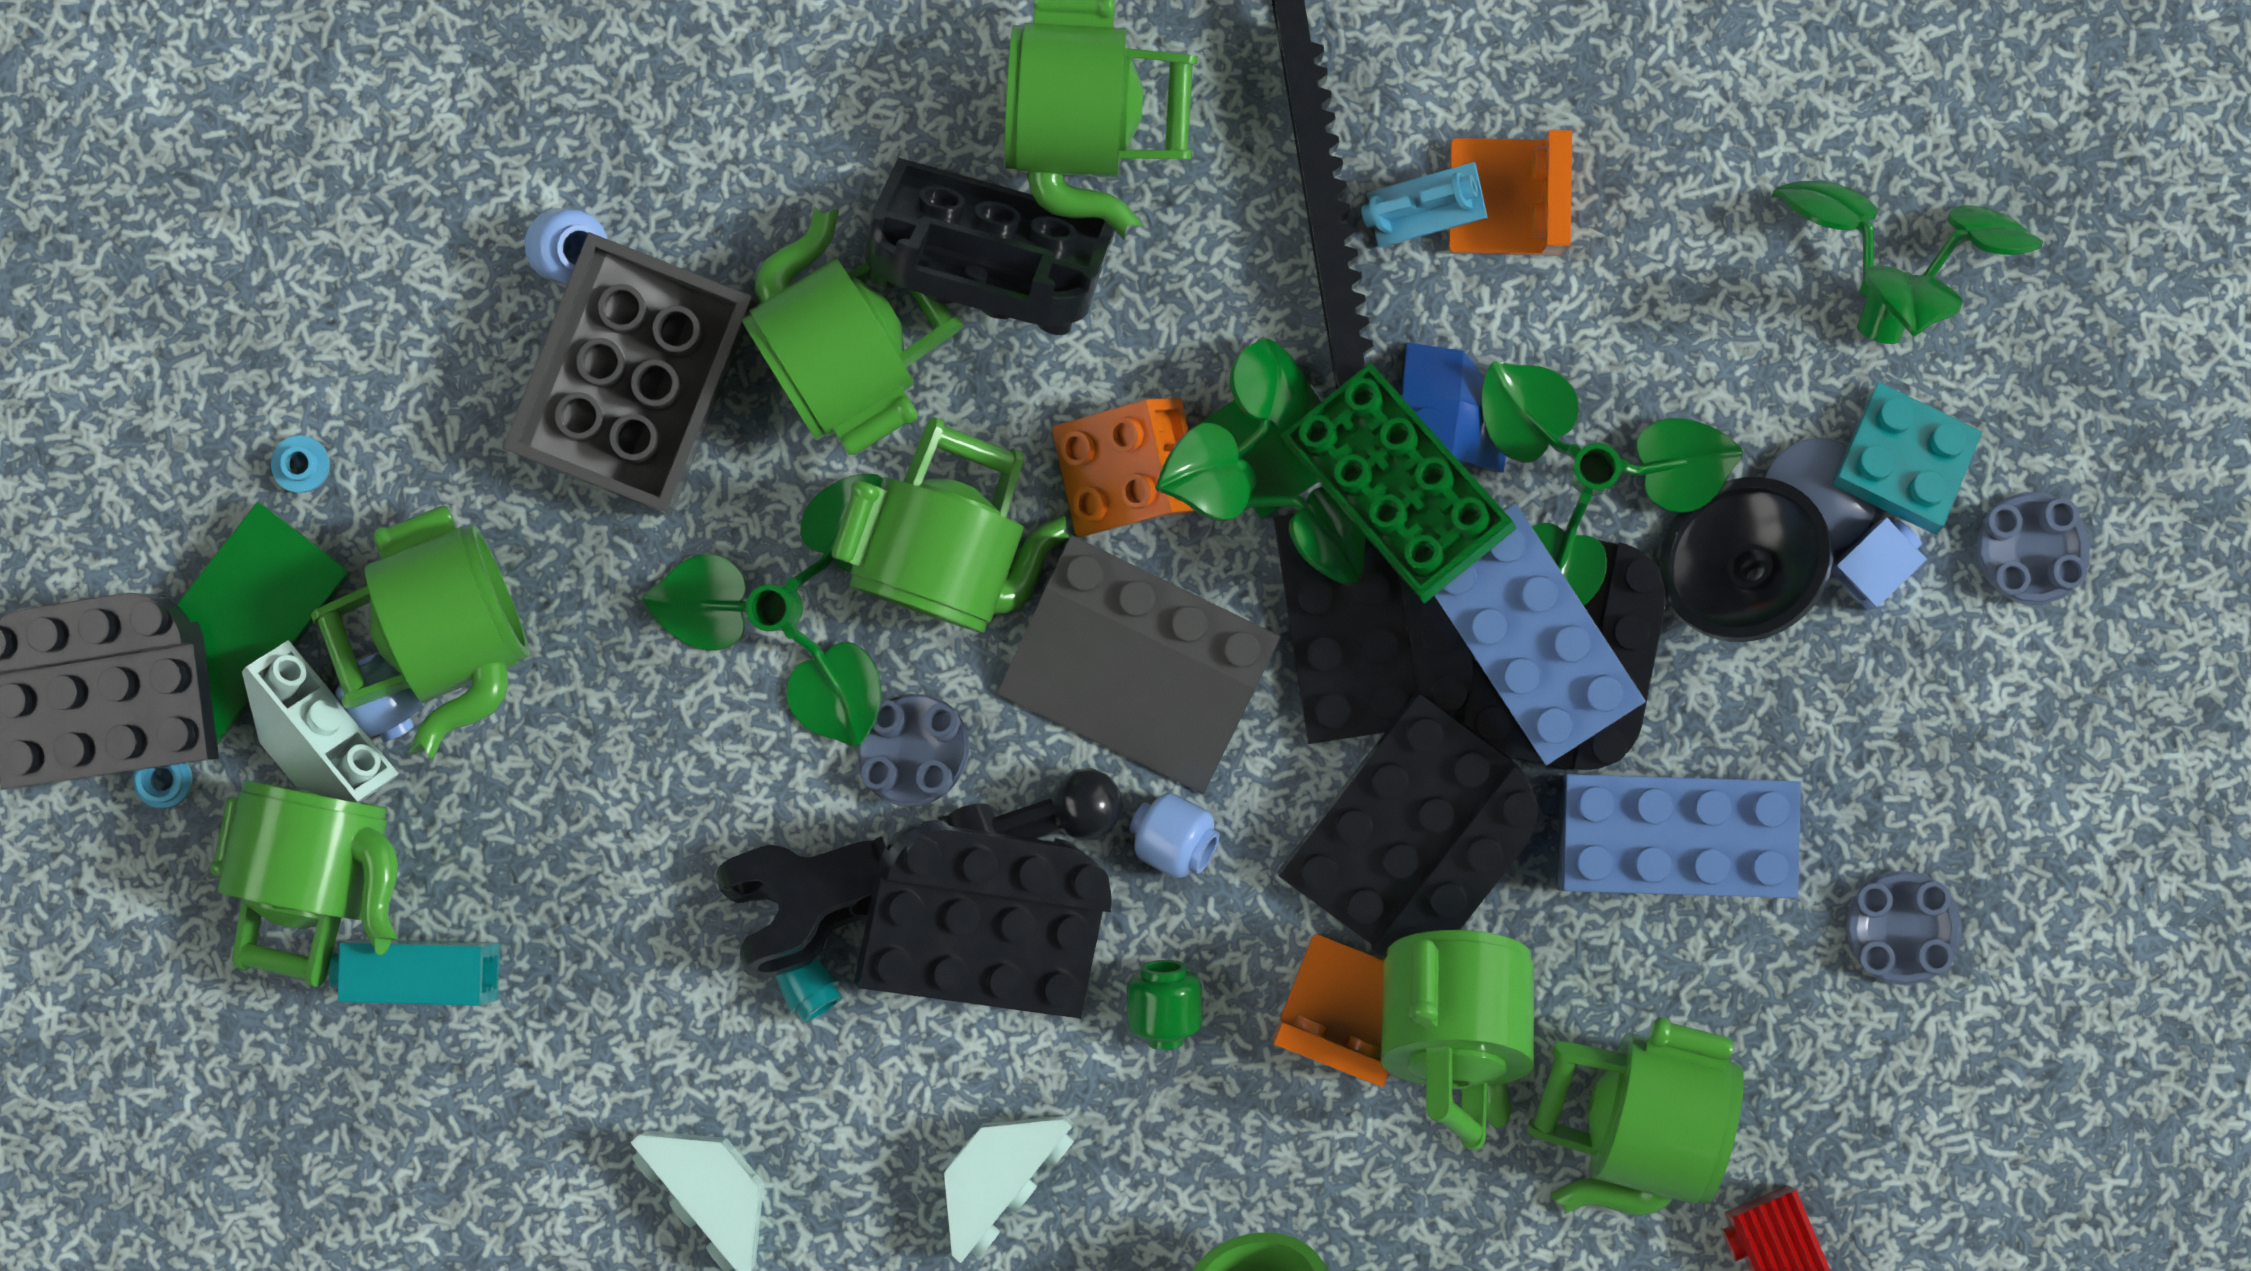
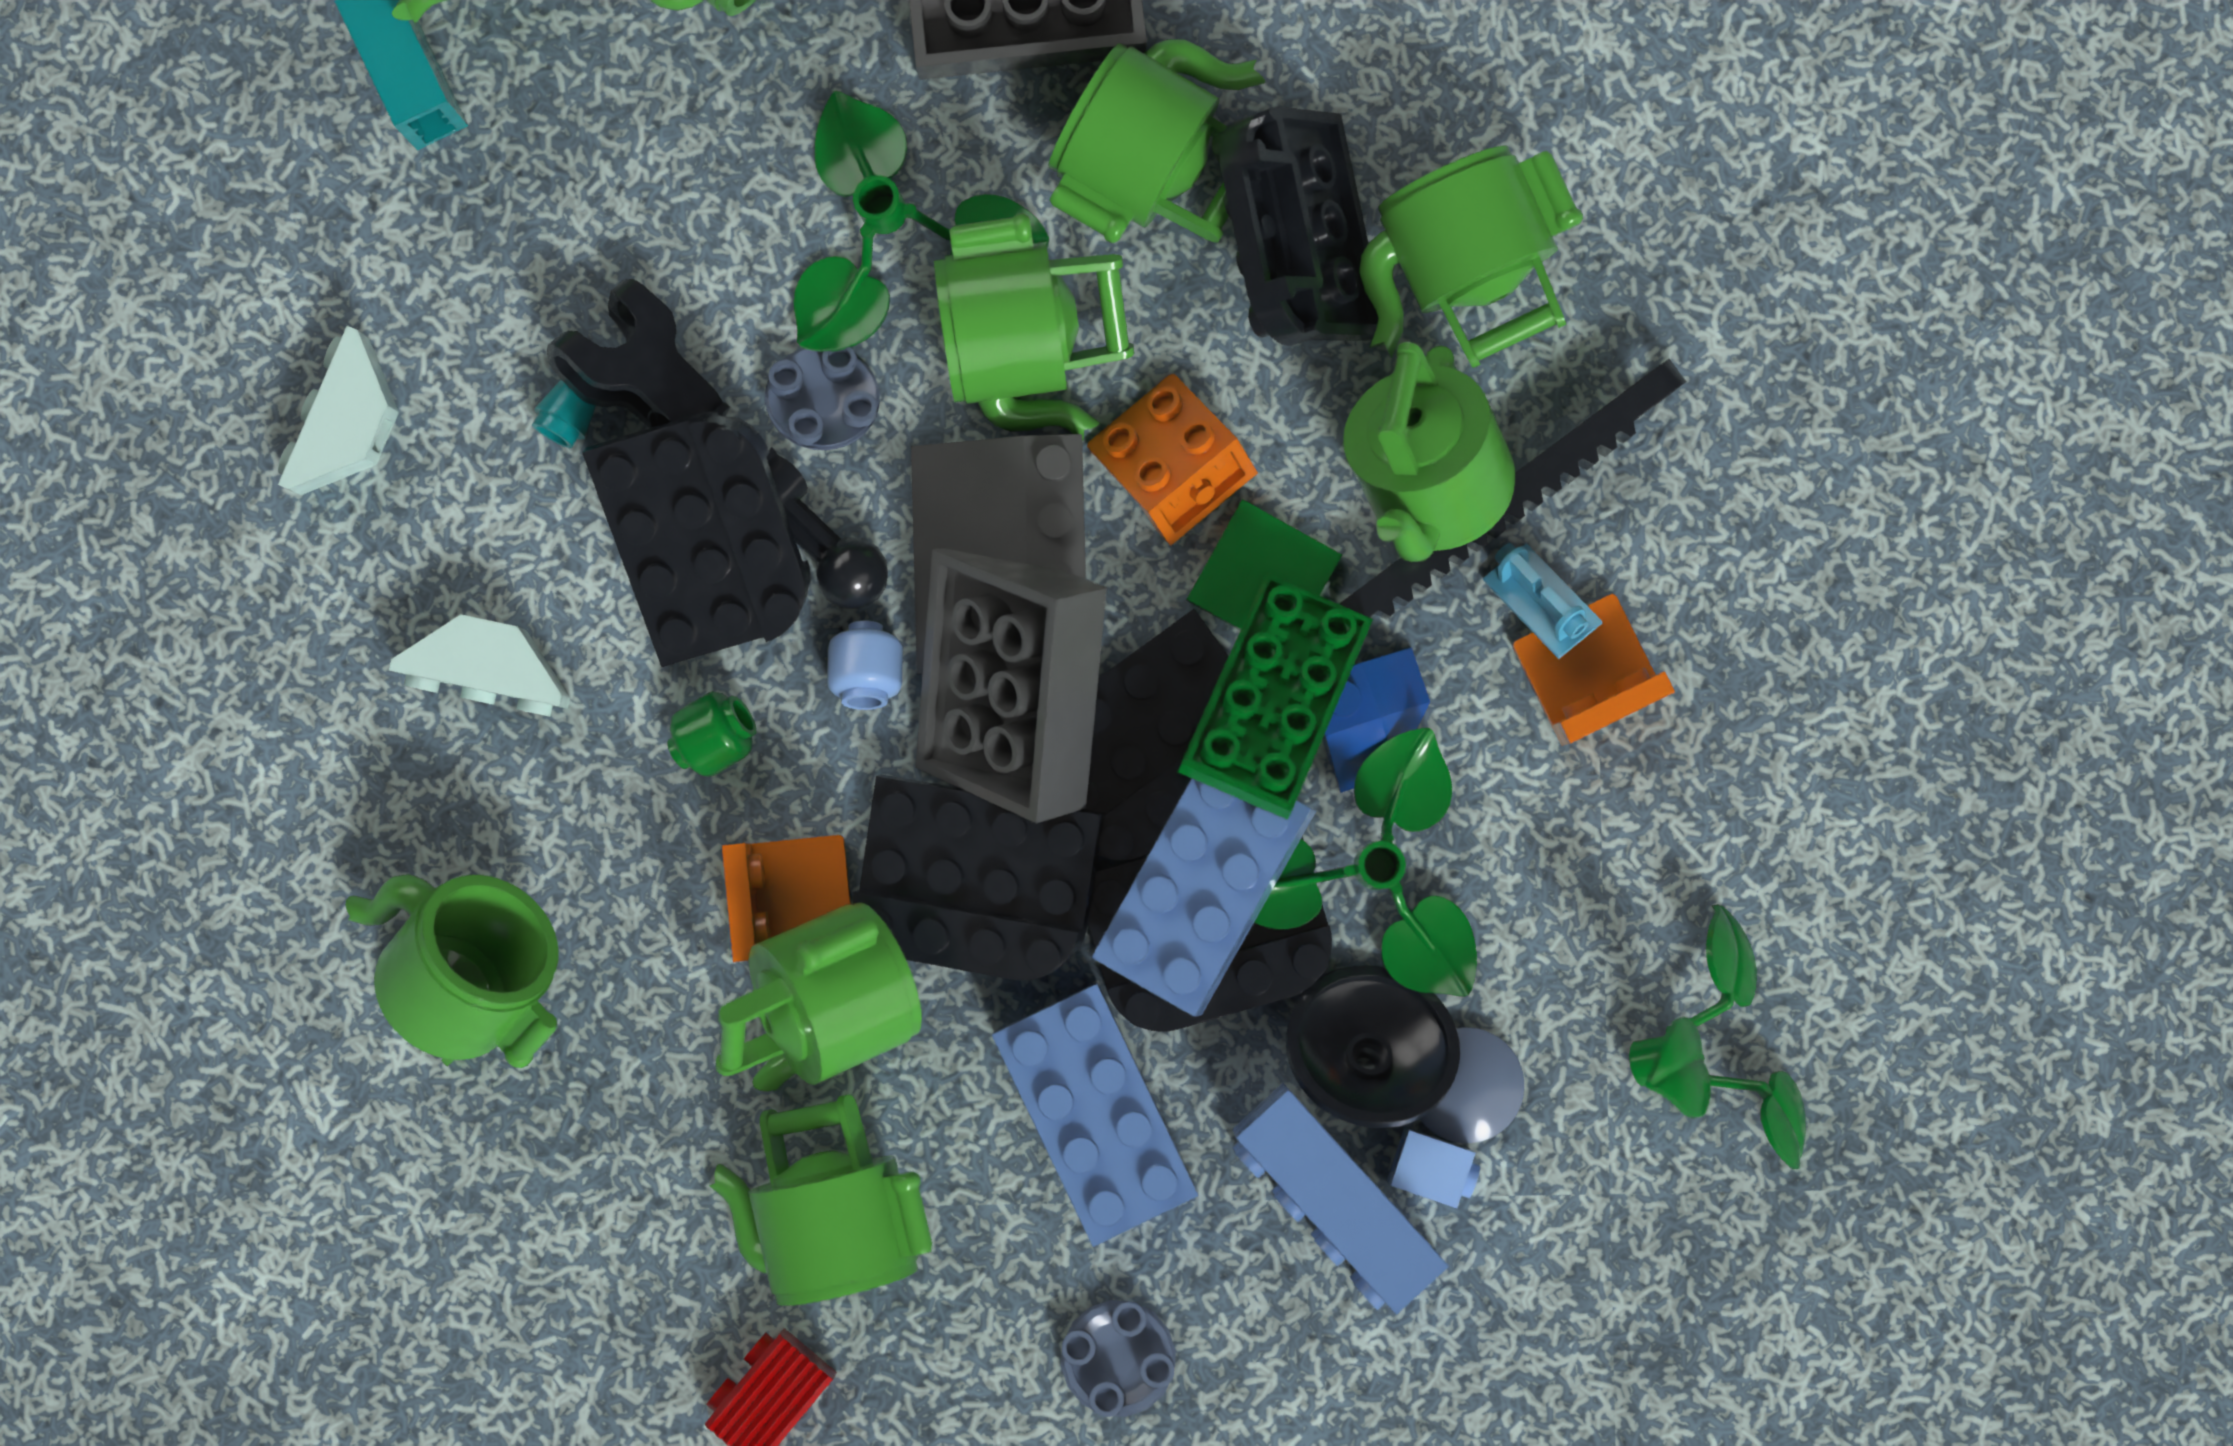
camera: 60 degrees right, 0 degrees up
(1214, 480) = (1192, 532): green plant -> none
(1252, 237) = (1429, 455): none -> bright green piece
(1261, 712) = (1010, 682): none -> dark grey slope
(1869, 657) = (1339, 1198): none -> medium blue brick
(1907, 458) = (1539, 1146): teal plate -> none
(2034, 548) = (1518, 1301): sand blue dish -> none

